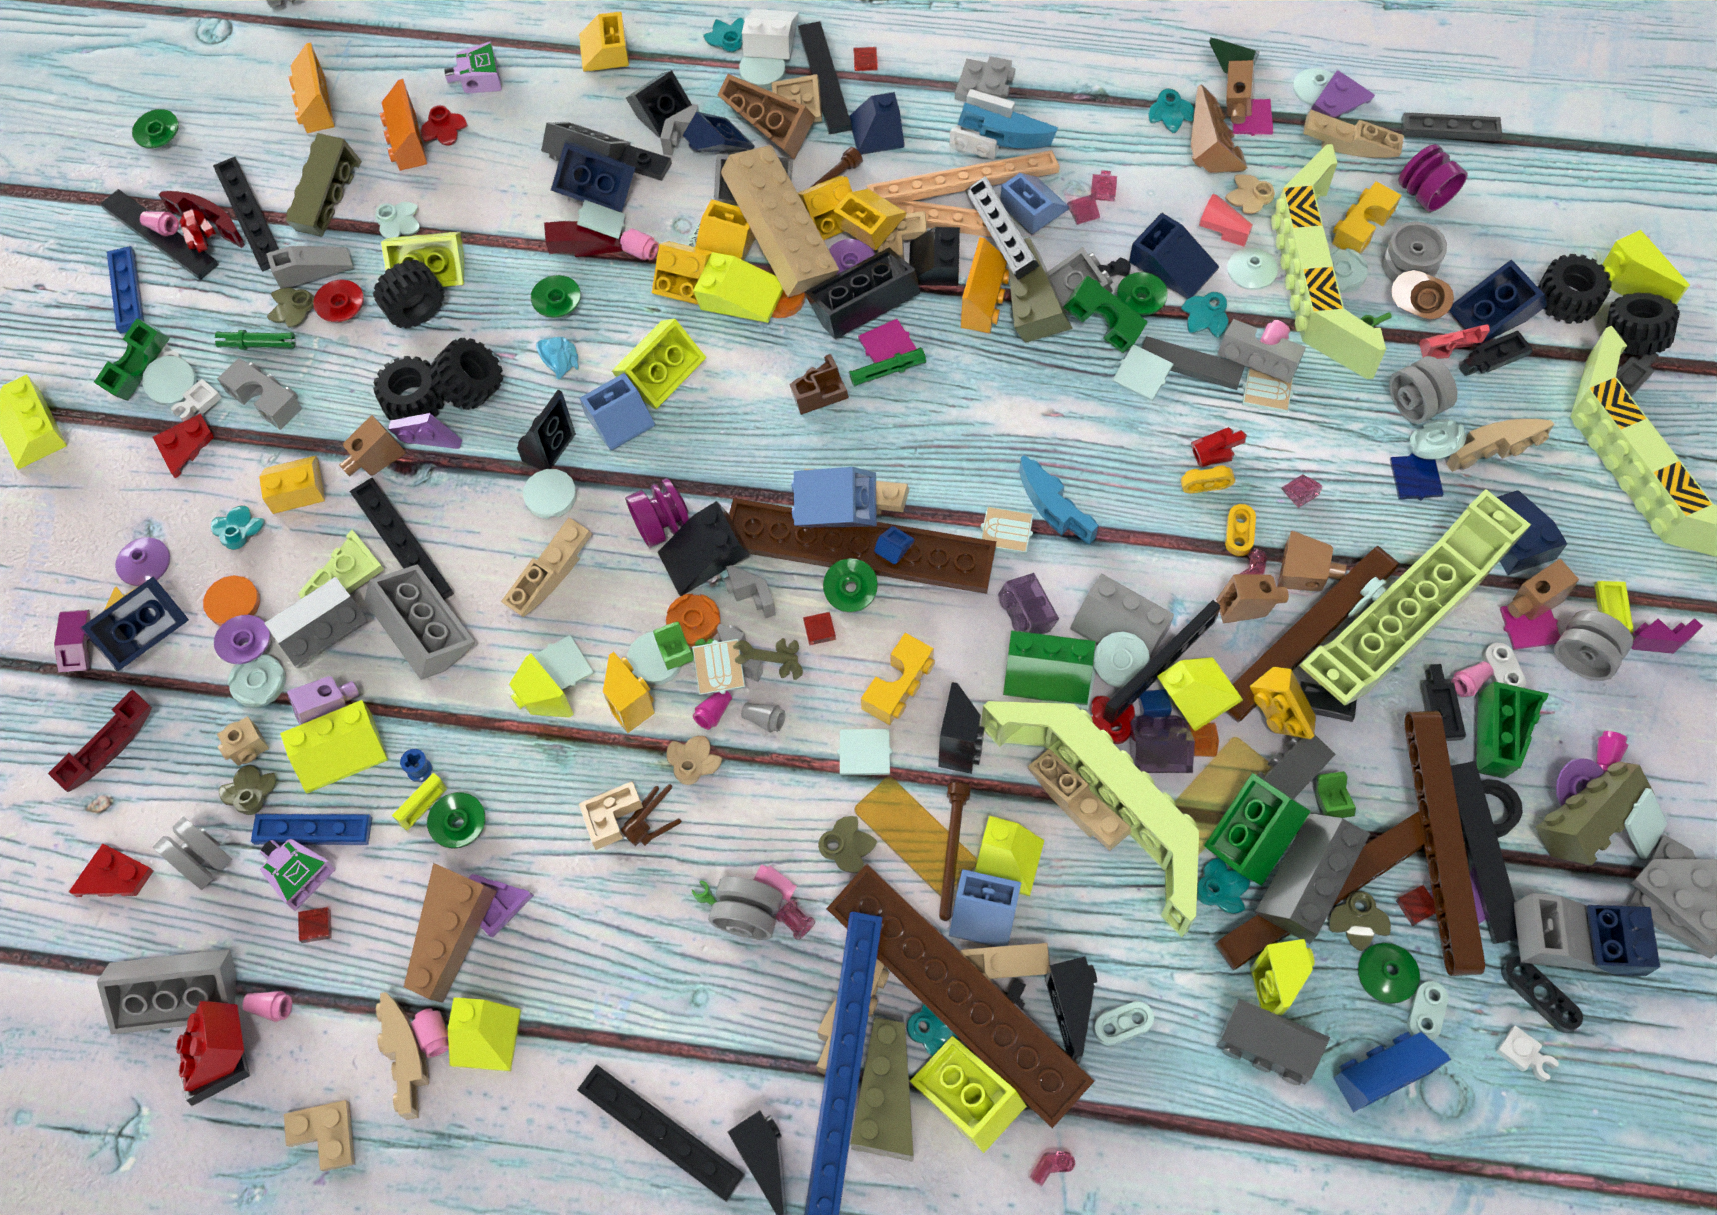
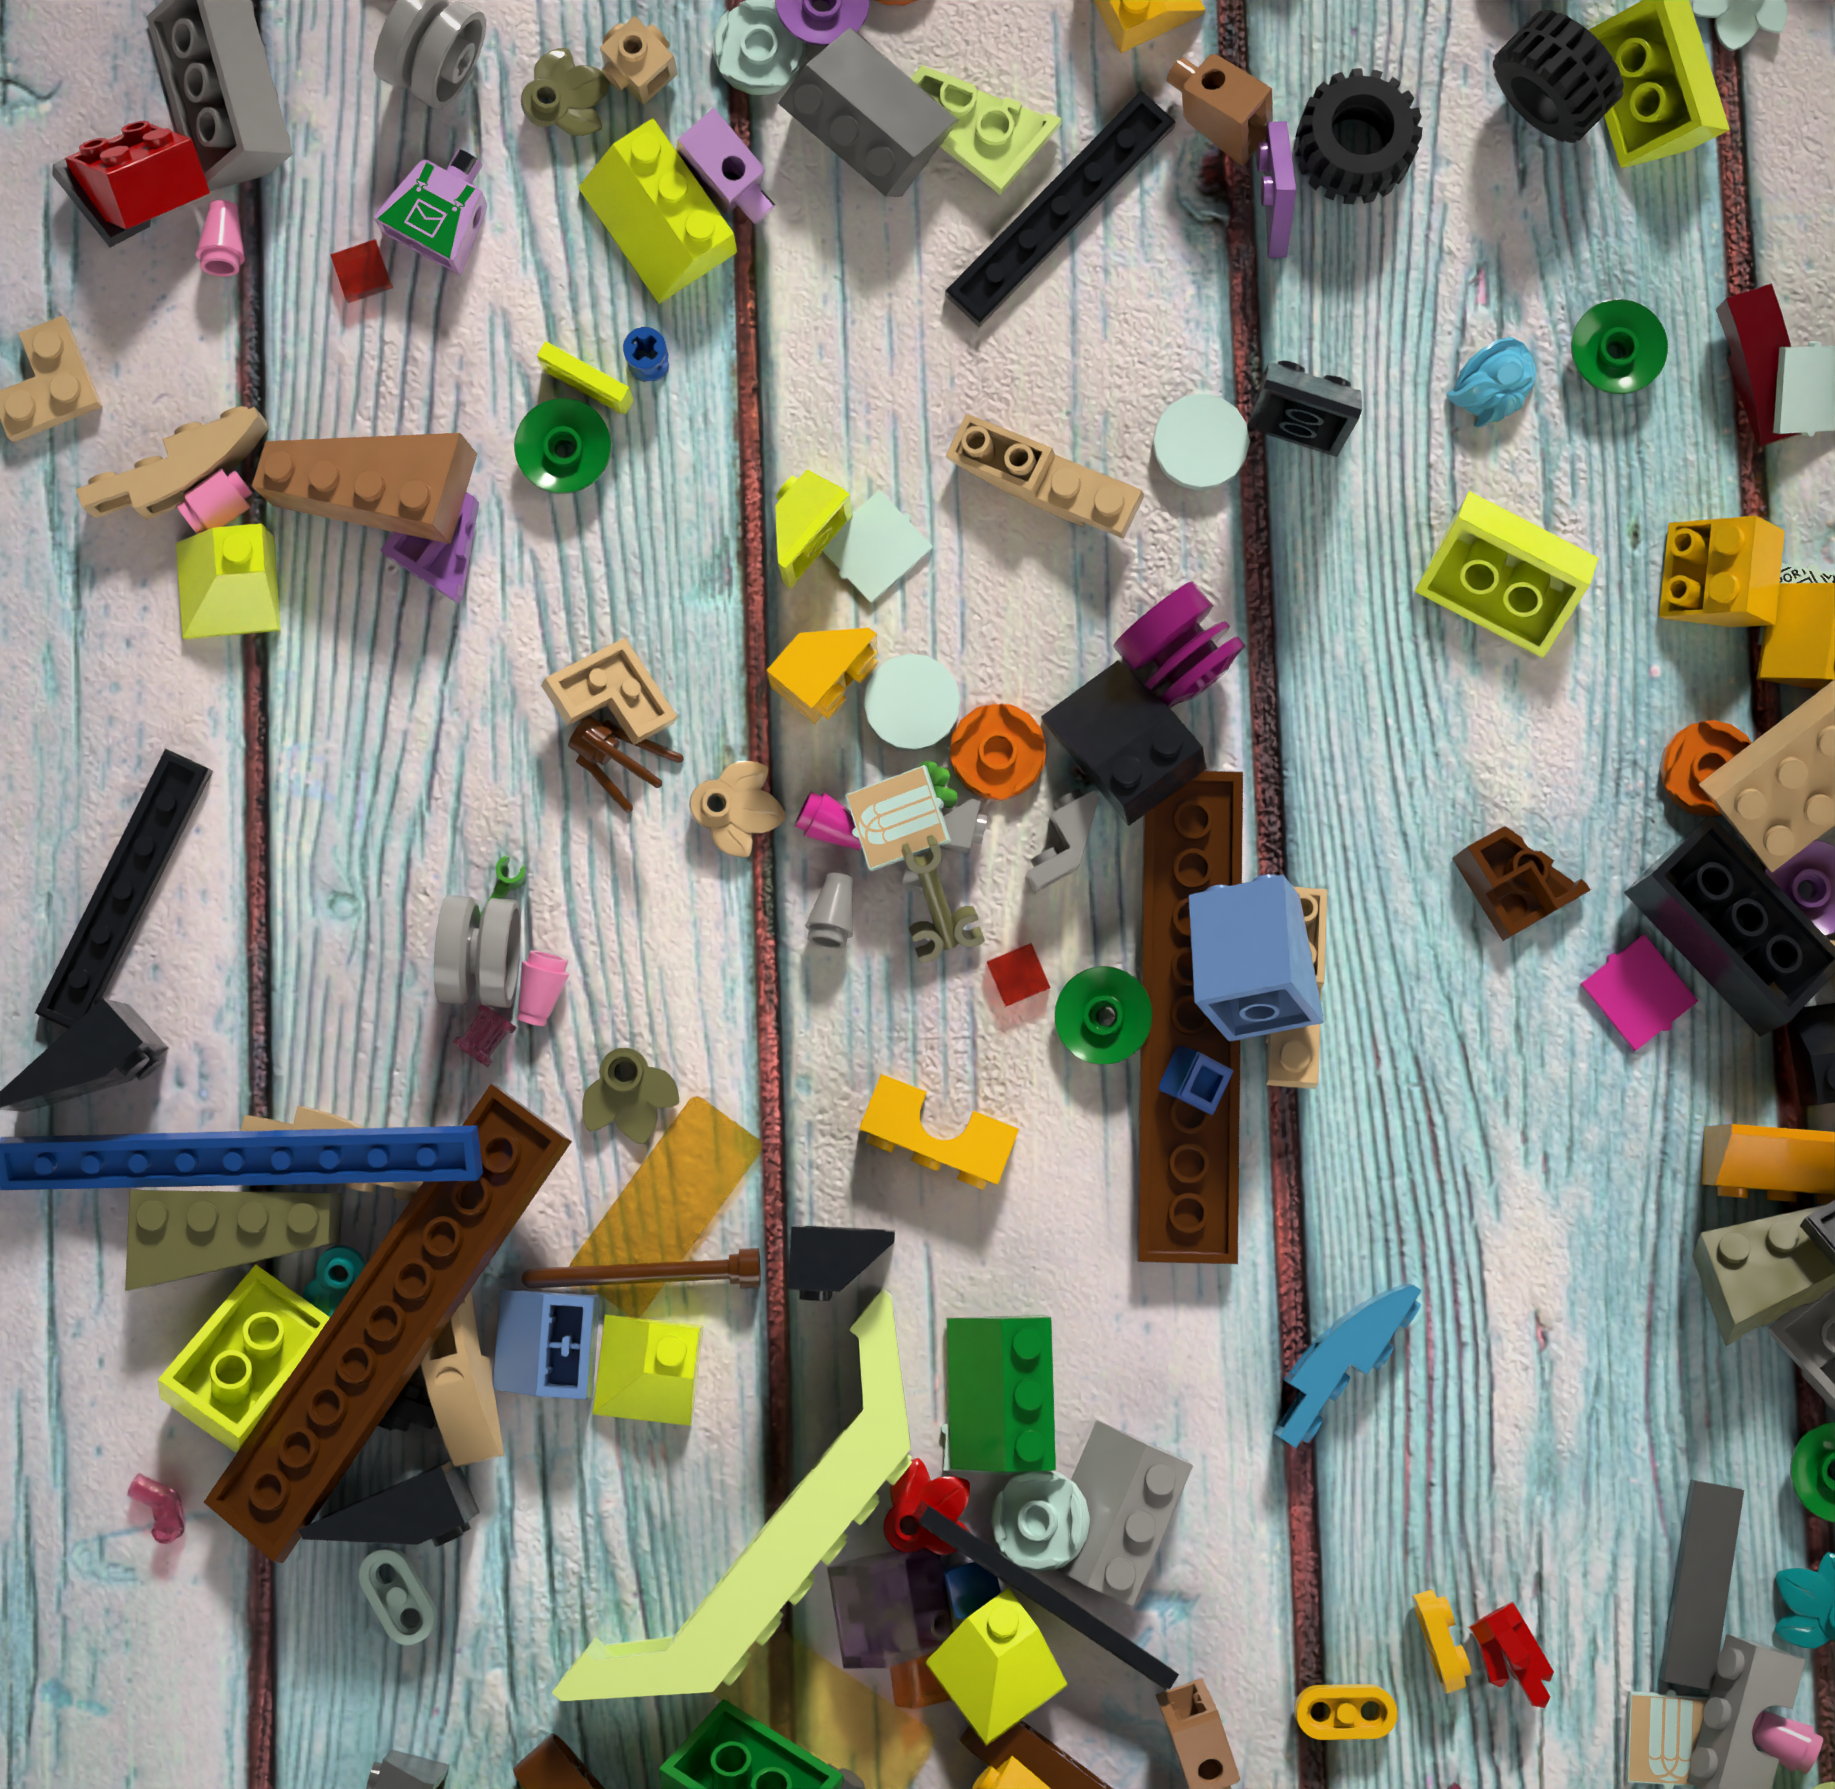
camera: 75 degrees right, 20 degrees up
(312, 829) = (517, 217): blue tile -> none
(418, 620) = (906, 283): light grey slope -> none
(453, 382) = (1423, 257): black tyre -> none
(617, 411) = (1381, 522): medium blue slope -> none
(639, 244) = (1769, 475): bright pink brick -> none
(673, 645) = (924, 731): bright green bracket -> none
(737, 289) = (1698, 687): neon yellow slope -> none
(864, 752) = (801, 1095): light aqua piece -> none
(888, 366) = (1585, 1010): green pin -> none
(1008, 528) = (1275, 1278): piece -> none
(1028, 605) = (1112, 1339): clear purple brick -> none
(1077, 800) = (764, 1476): tan slope -> none
(1123, 322) = (1757, 1443): green arch -> none
(1142, 372) = (1659, 1492): light aqua piece -> none
(1225, 884) = (652, 1744): teal plate -> none
(1257, 562) = (1274, 1749): clear pink arm -> none

